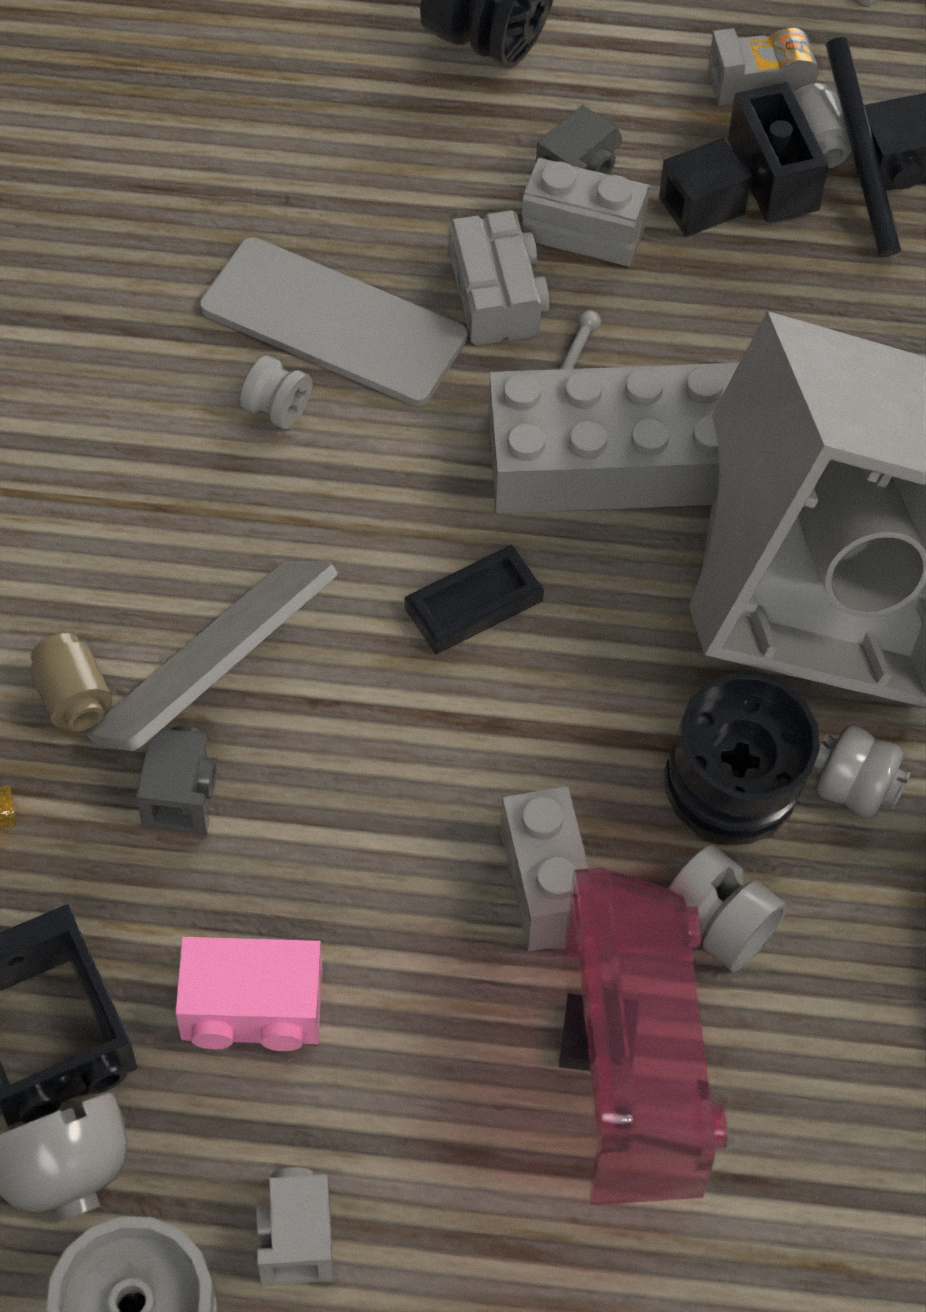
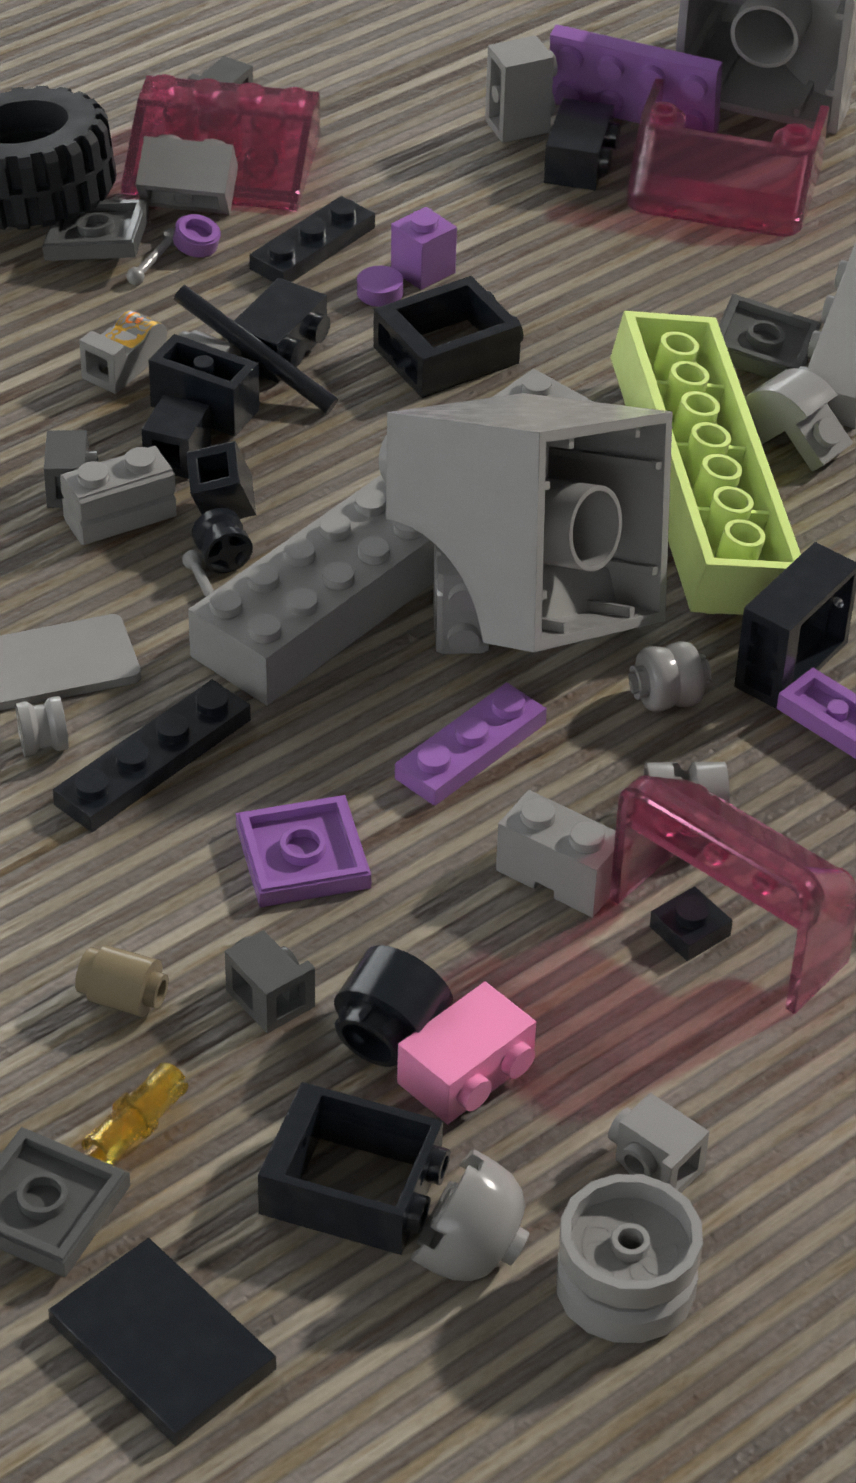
camera: 45 degrees left, 15 degrees down
(211, 654) = (202, 892): light grey piece -> none
(226, 890) = (386, 1002): none -> black piece
(343, 487) = (151, 755): none -> black plate
(357, 680) = (303, 851): none -> medium lavender tile
(474, 599) = (318, 756): black tile -> none
(496, 277) = (104, 569): light grey brick -> none
(610, 690) = (470, 743): none -> medium lavender plate
(625, 321) = (222, 540): none -> black wheel
(676, 264) = (221, 479): none -> black brick
(746, 727) = (603, 709): black wheel -> none

